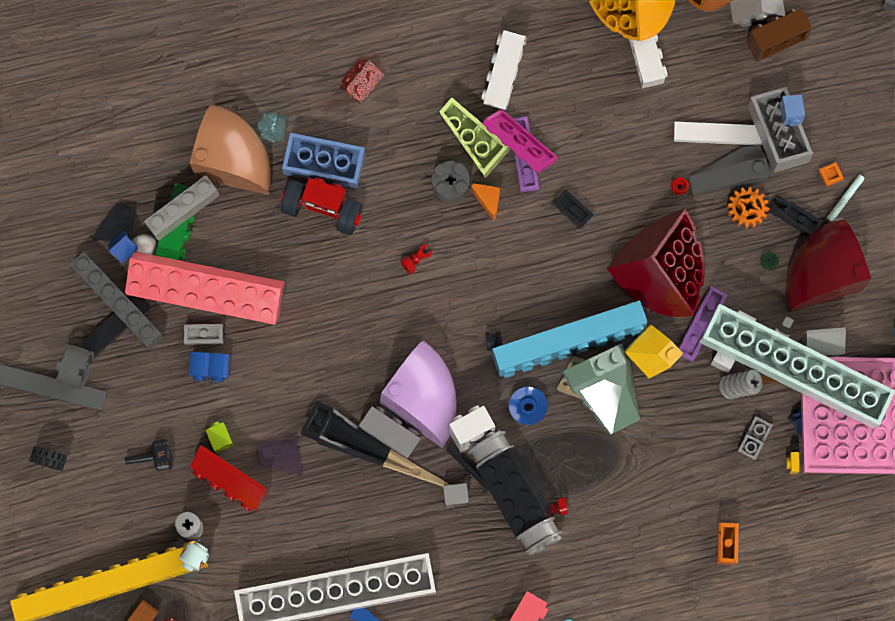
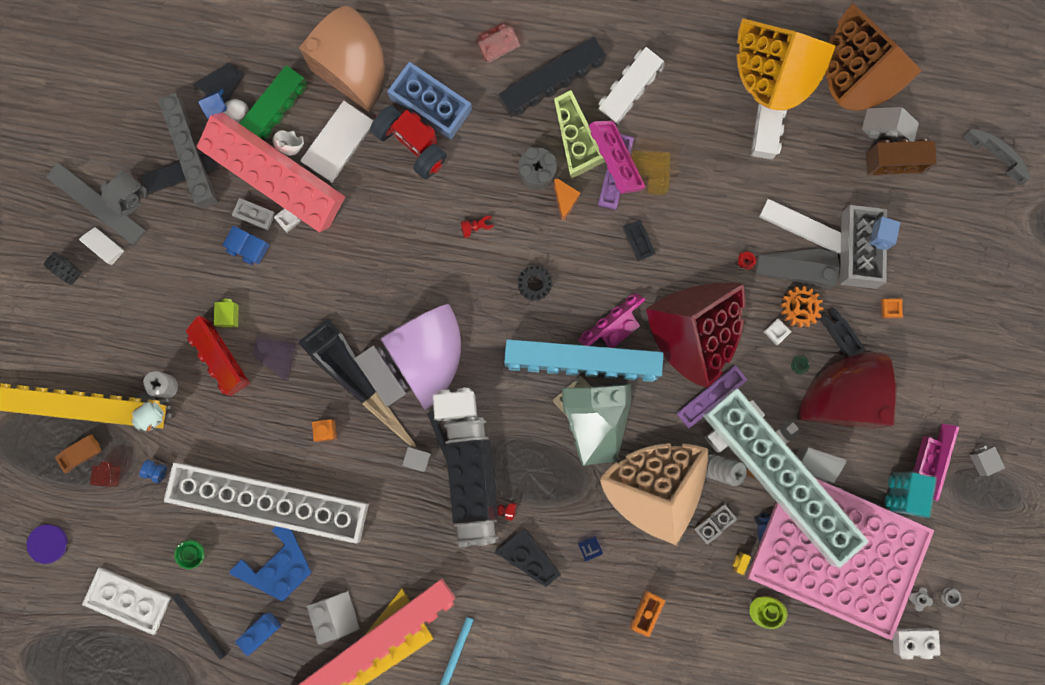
camera: 20 degrees right, 5 degrees up
(72, 423) = (102, 245): none -> white slope
(161, 456) = (166, 309): black piece -> none
(182, 208) = (279, 89): light grey brick -> none
(207, 254) = (287, 142): none -> white hair
(215, 610) = (152, 471): none -> blue wheel
(236, 326) = (287, 220): none -> white tile
(252, 234) = (337, 142): none -> white tile
(272, 127) = (397, 51): clear light blue brick -> none
(358, 505) = (324, 430): none -> orange brick
(427, 92) = (552, 77): none -> black brick
(493, 277) = (530, 272): none -> black tyre
(493, 340) = (513, 331): black wheel -> none
(530, 396) = (514, 395): blue dish -> none
(559, 135) = (657, 168): none -> clear yellow panel
(585, 295) = (616, 325): none -> dark pink bracket
(597, 540) = (529, 557): none -> black wing
(650, 509) = (590, 548): none -> clear blue tile
(653, 352) = (655, 404): yellow slope -> none
(688, 426) = (658, 488): none -> light nougat brick
(736, 239) = (777, 331): none -> white tile
(837, 497) = (768, 612): none -> lime hat
(845, 198) = (895, 336): light aqua bar -> none

